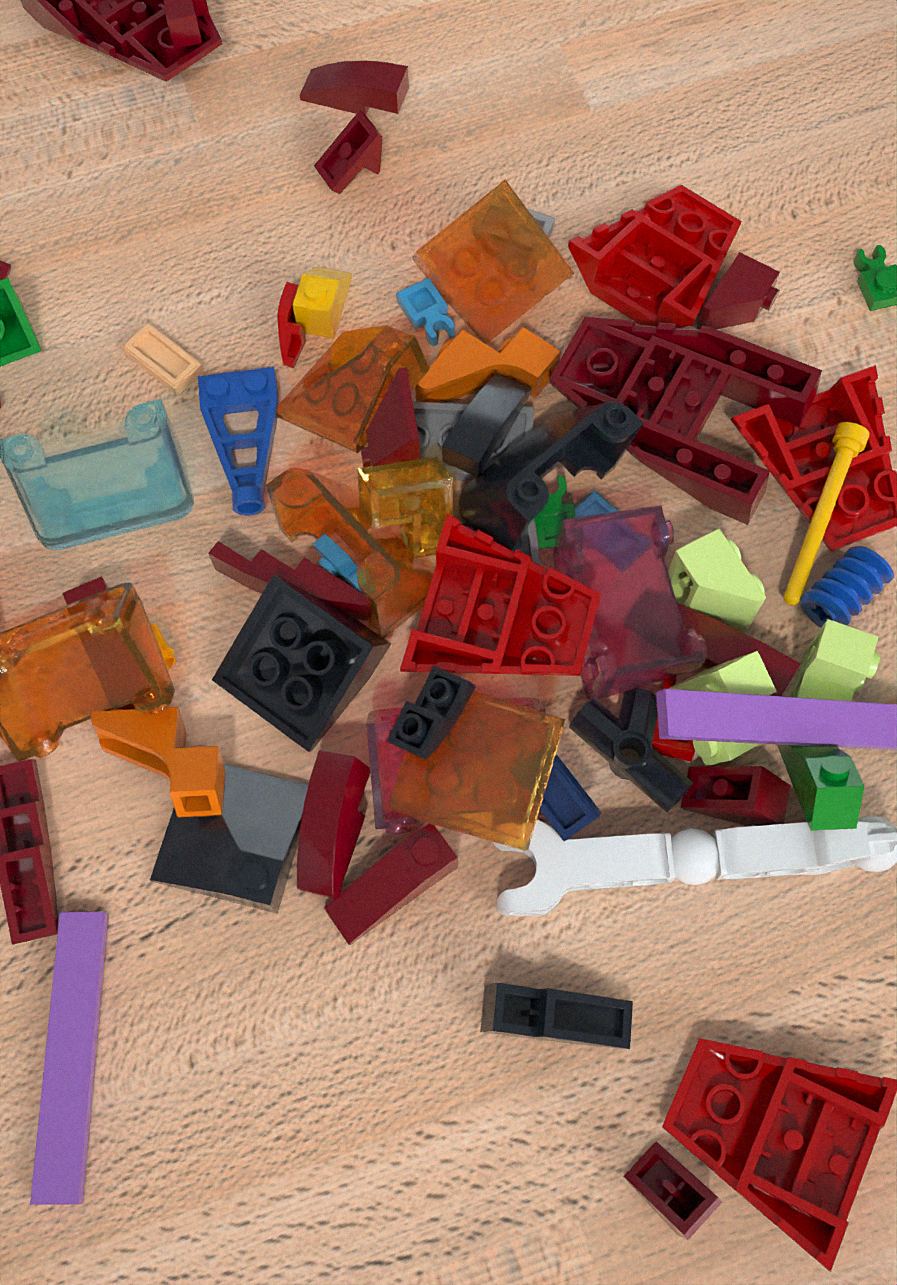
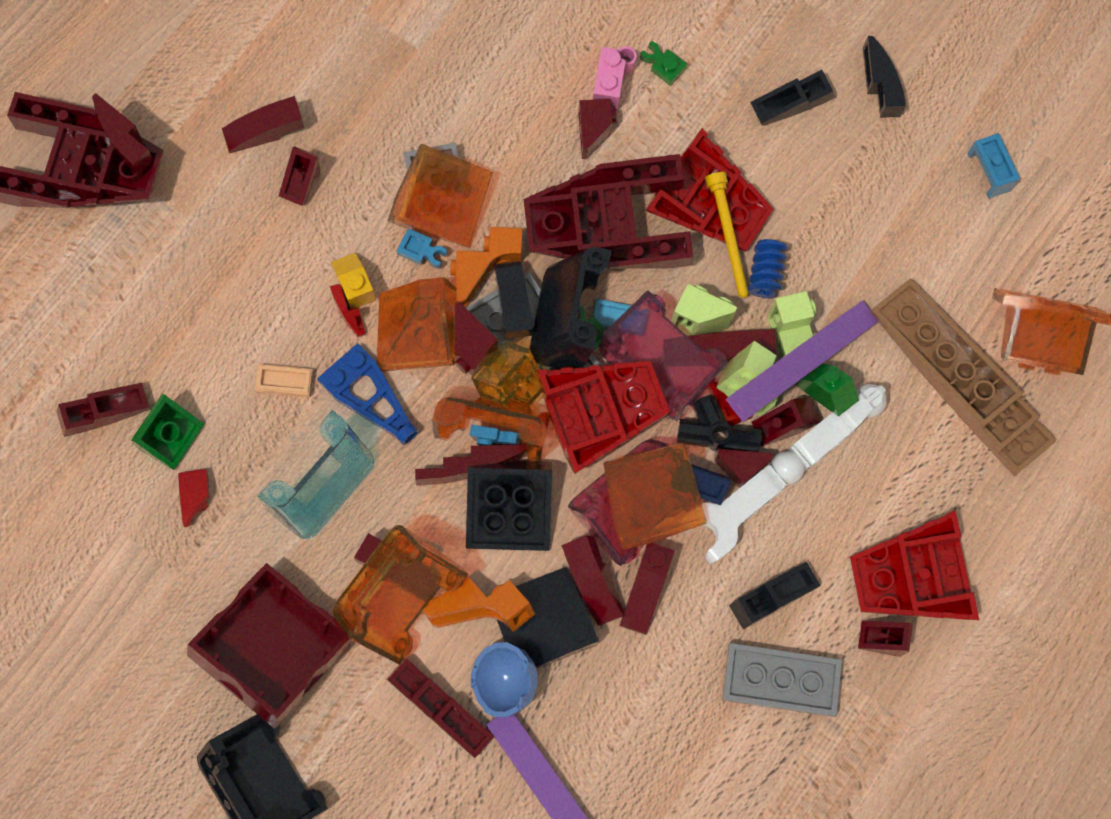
camera: 45 degrees left, 5 degrees up
(118, 870) = (504, 679): none -> medium blue cylinder
(428, 721) = (612, 485): black slope -> none
(483, 1144) = (782, 680): none -> light grey plate
(635, 810) = (742, 465): none -> dark red slope
(657, 259) = (534, 129): red wedge -> none
(804, 249) = (611, 72): none -> bright pink hinge

